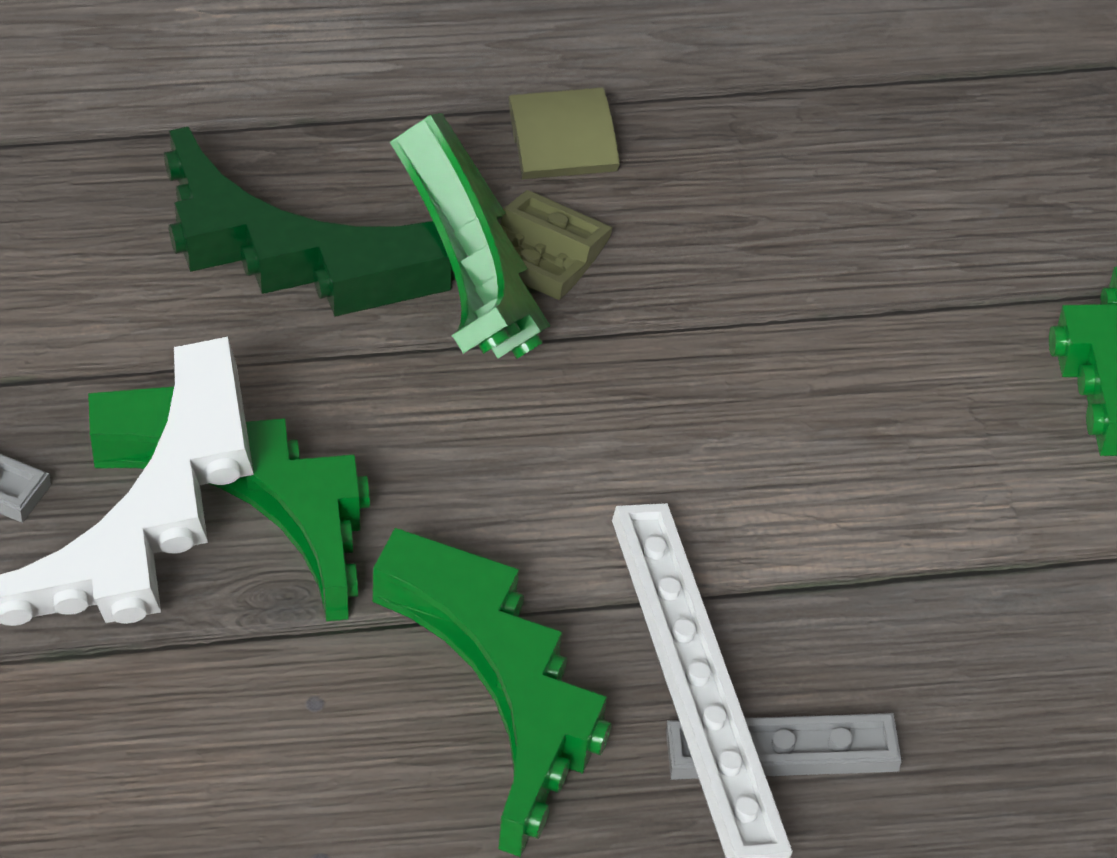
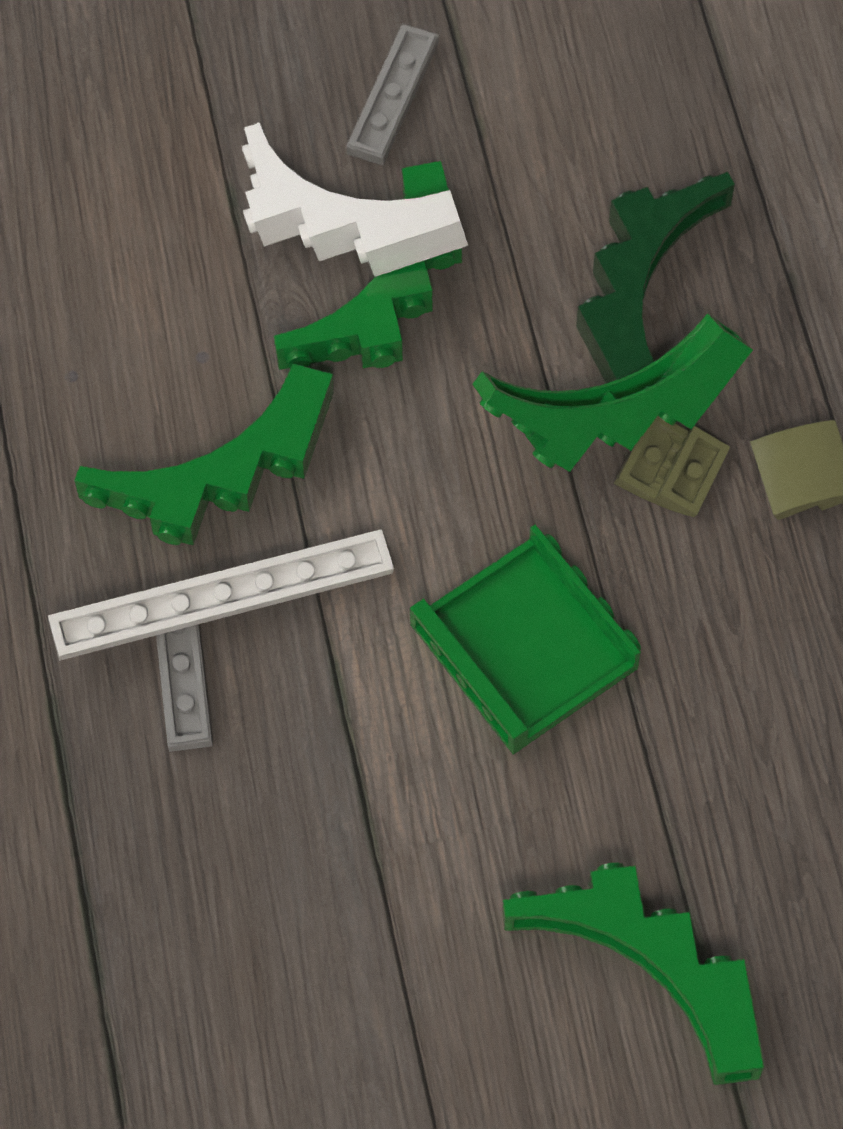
camera: 90 degrees right, 15 degrees up
(762, 393) = (527, 640): none -> green panel

